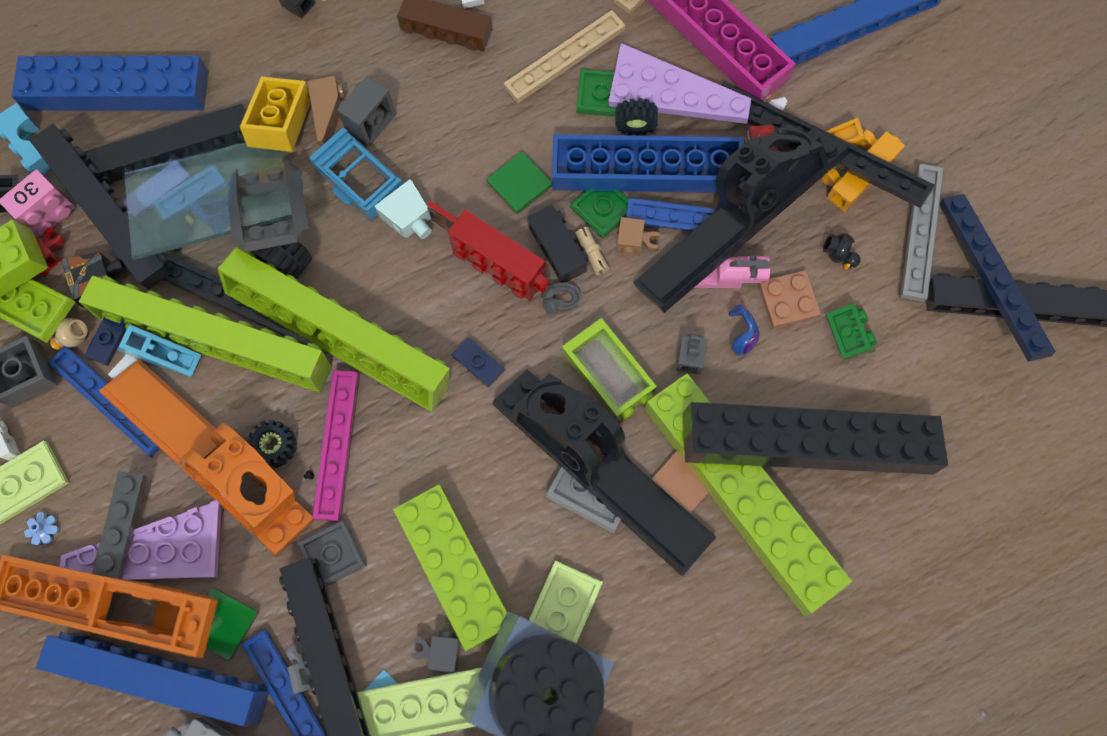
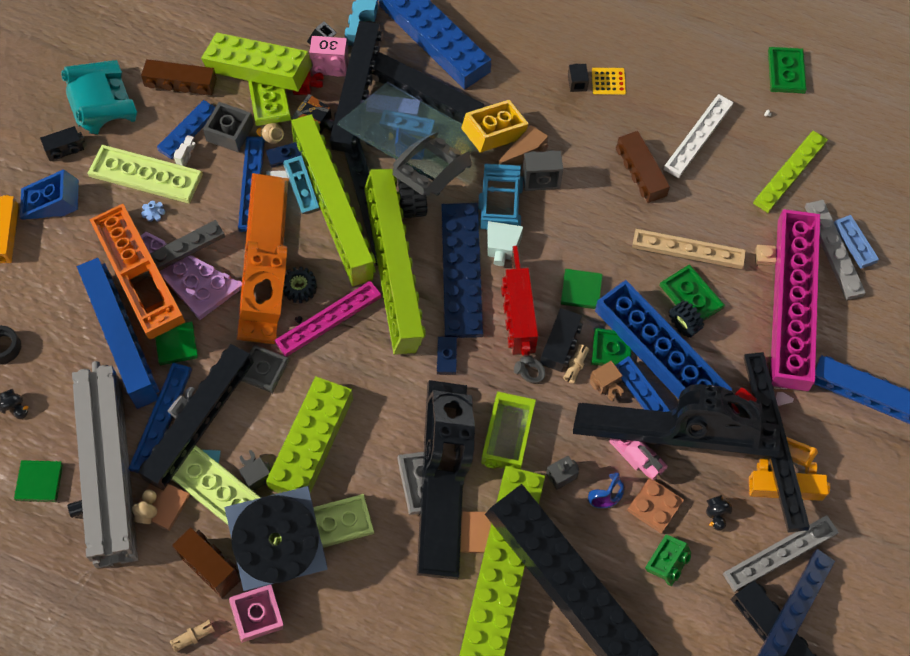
camera: 45 degrees right, 10 degrees down
(399, 274) = (461, 271): none -> dark blue plate
(674, 89) = (727, 326): lavender wing -> none

